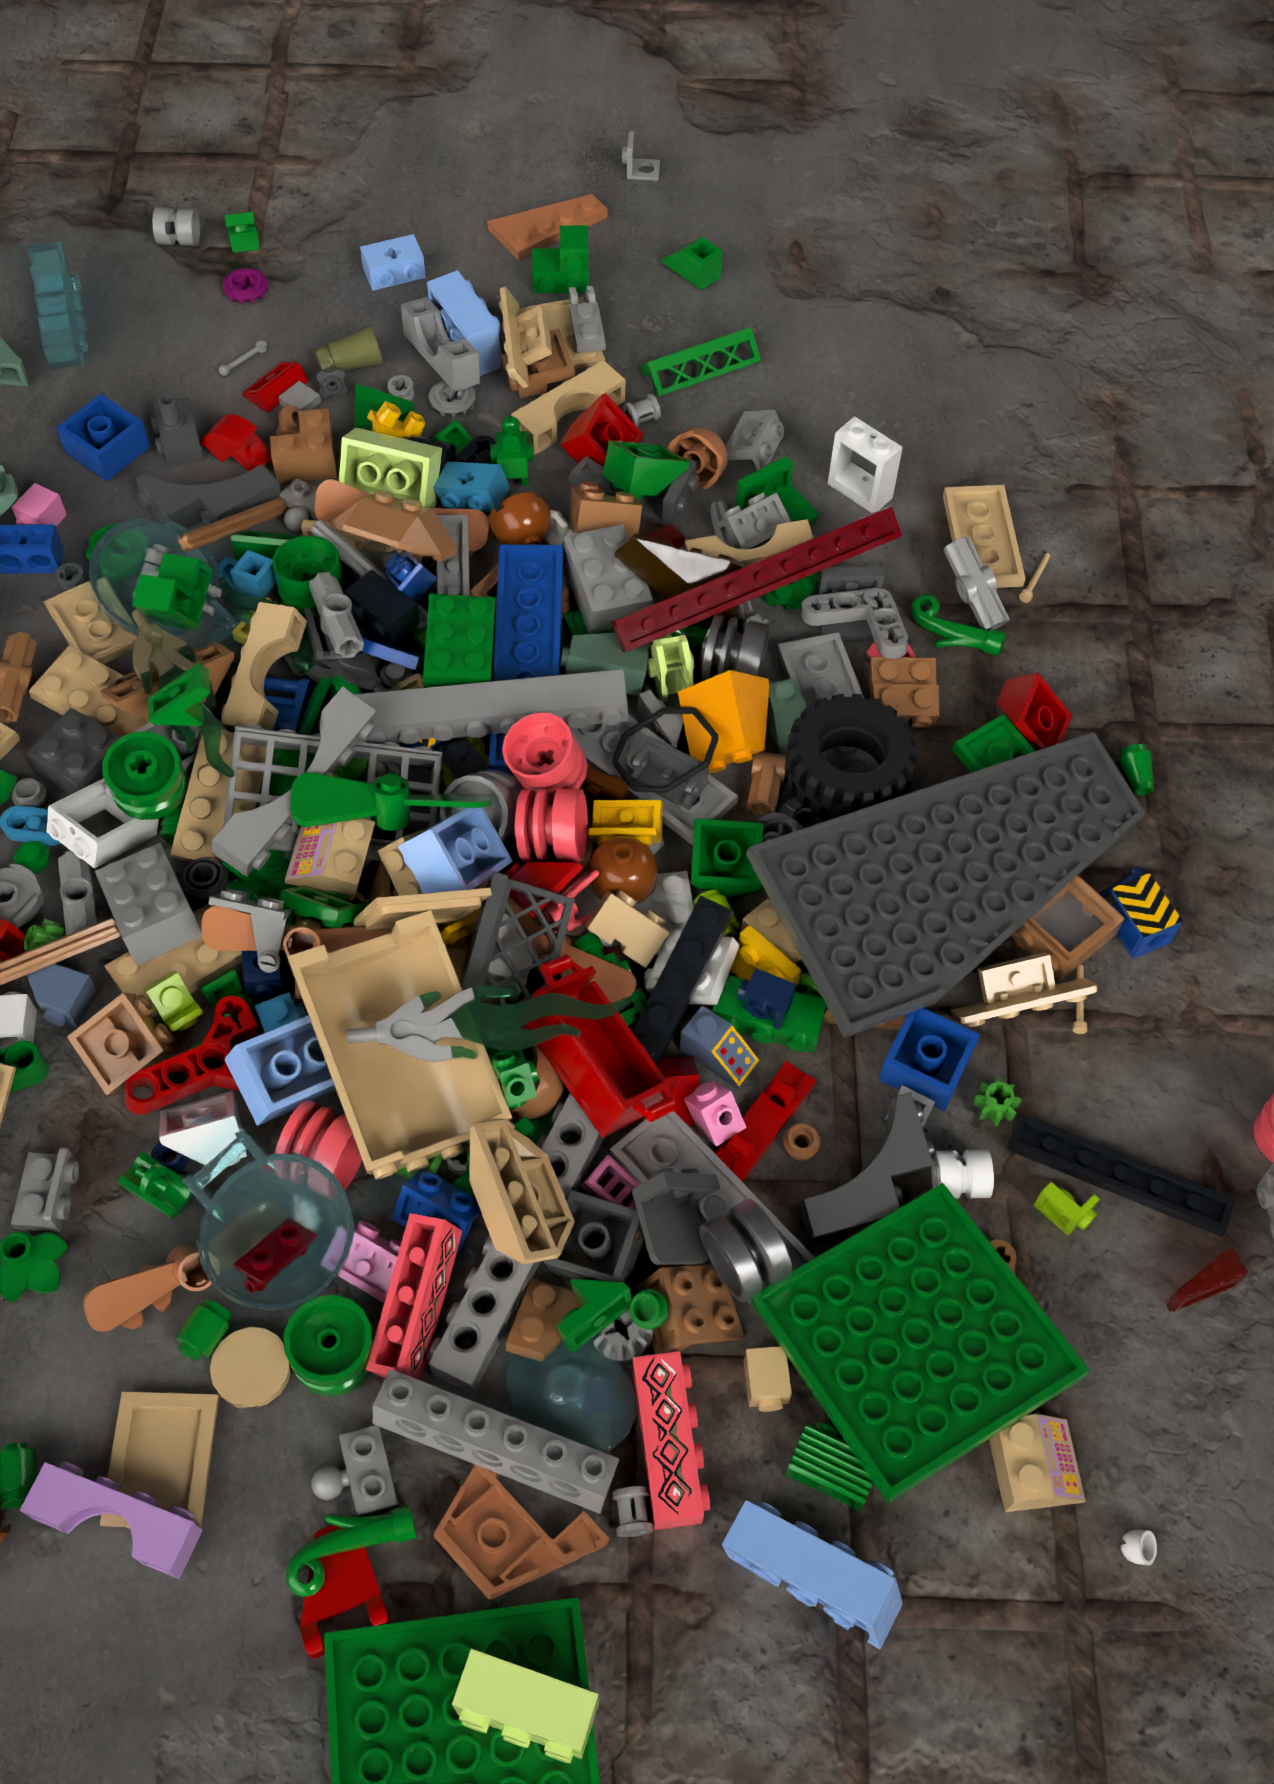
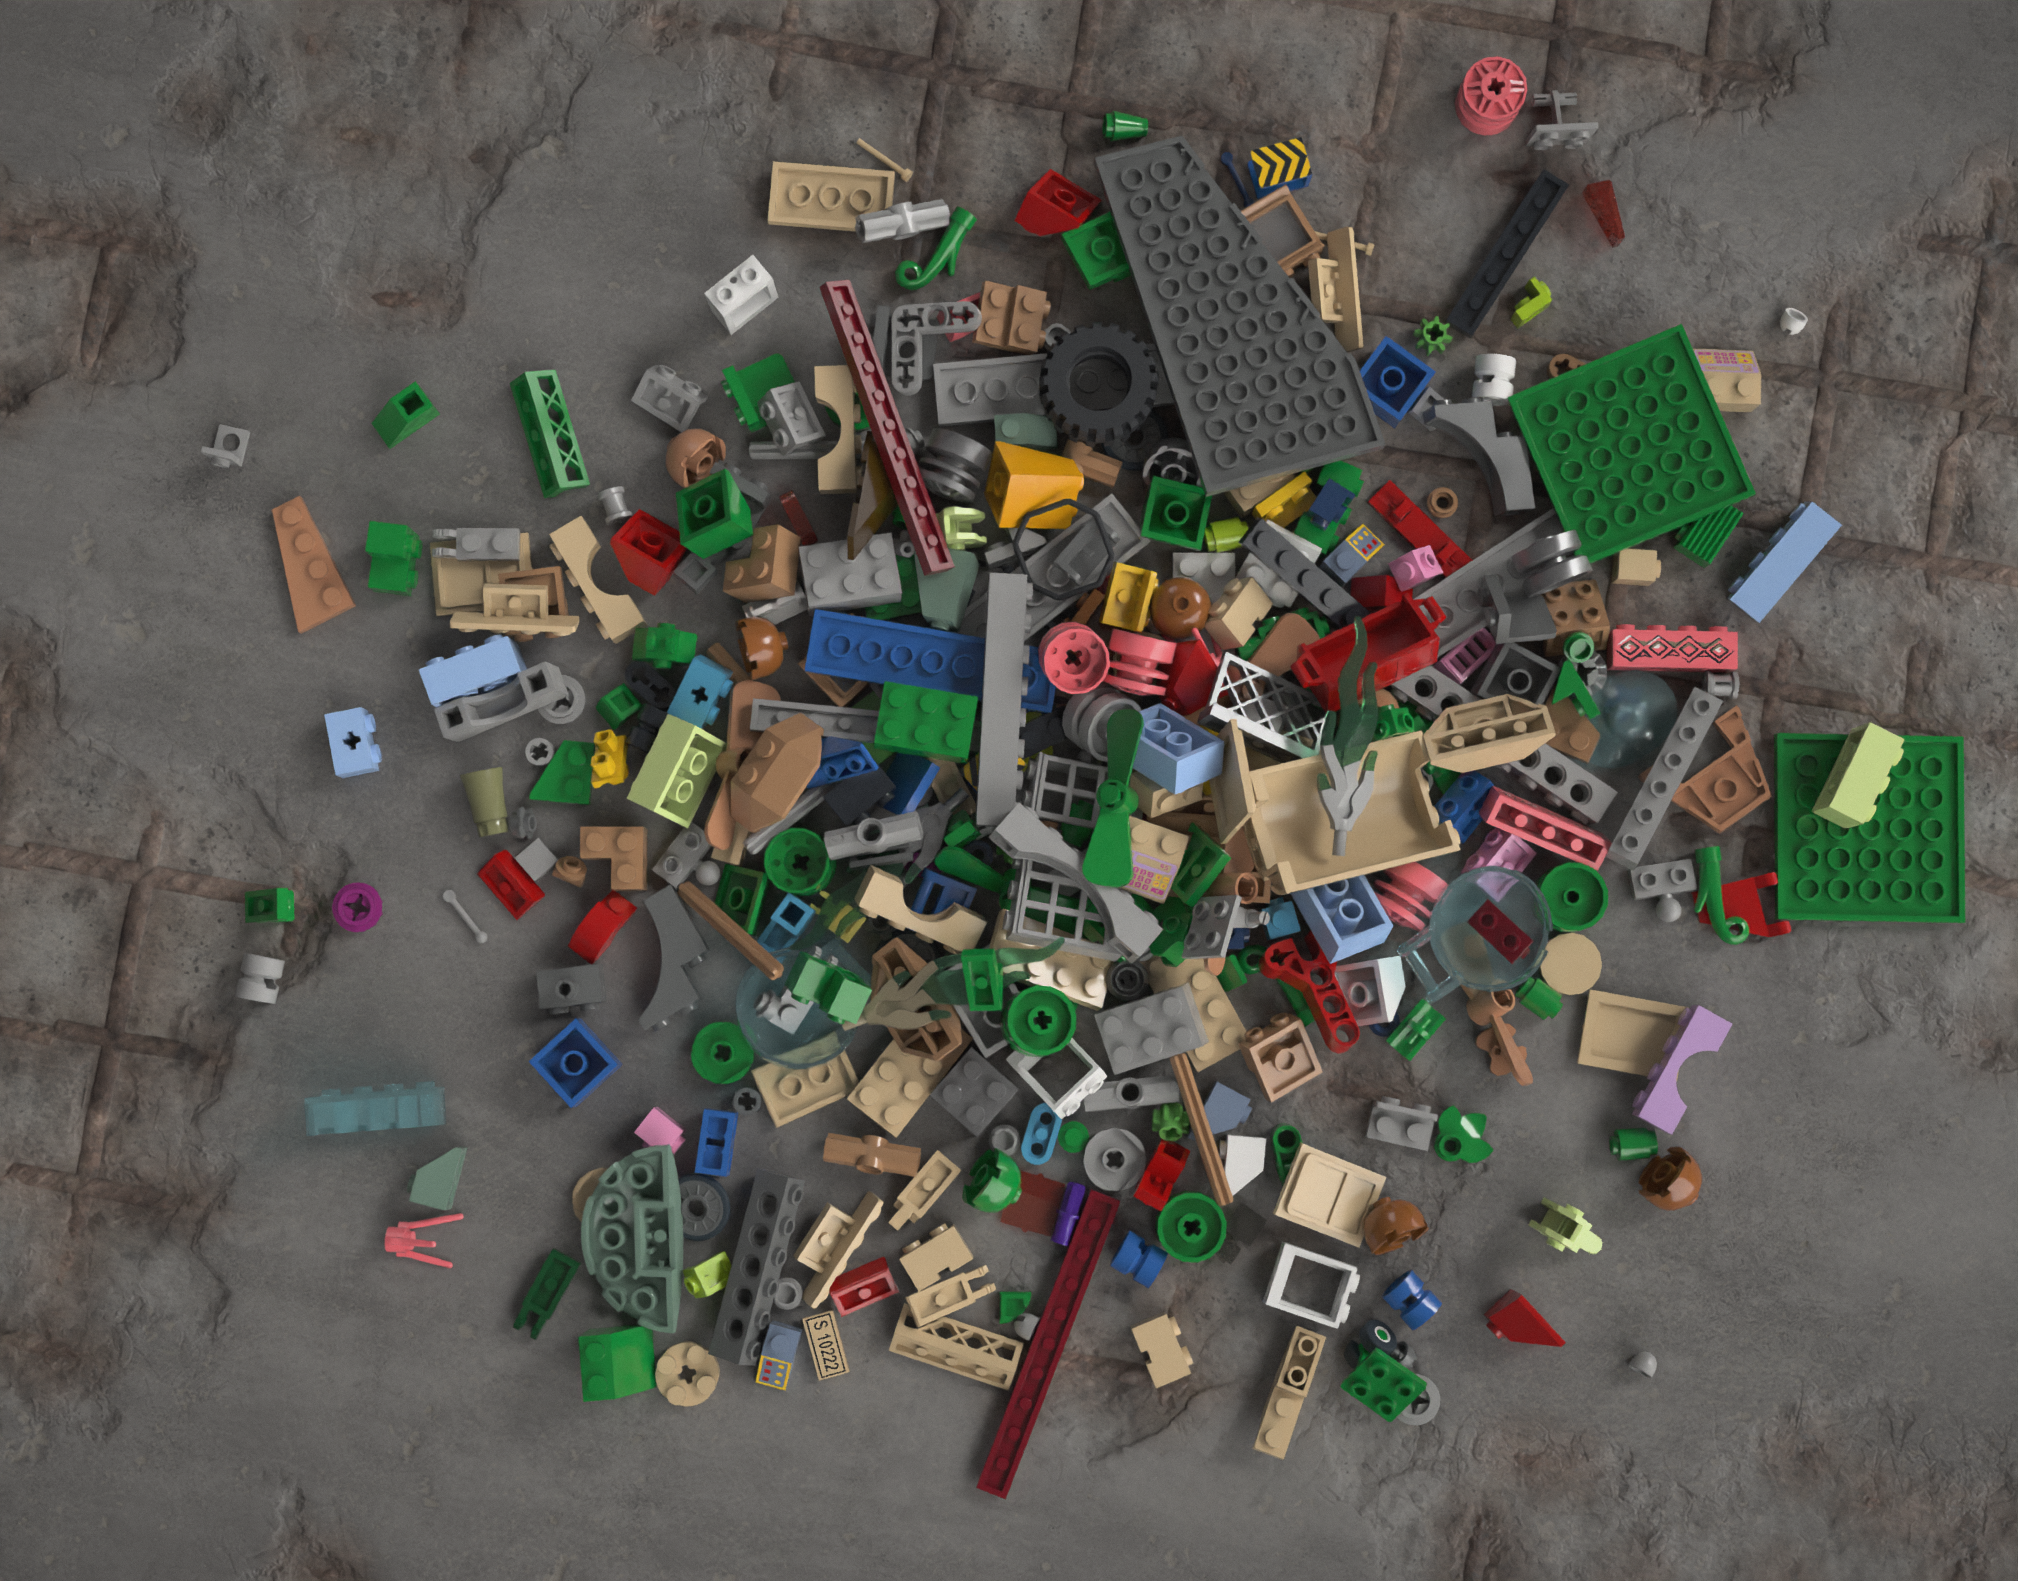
camera: 80 degrees left, 25 degrees up
(173, 1002) = (1248, 1010): lime bracket -> none

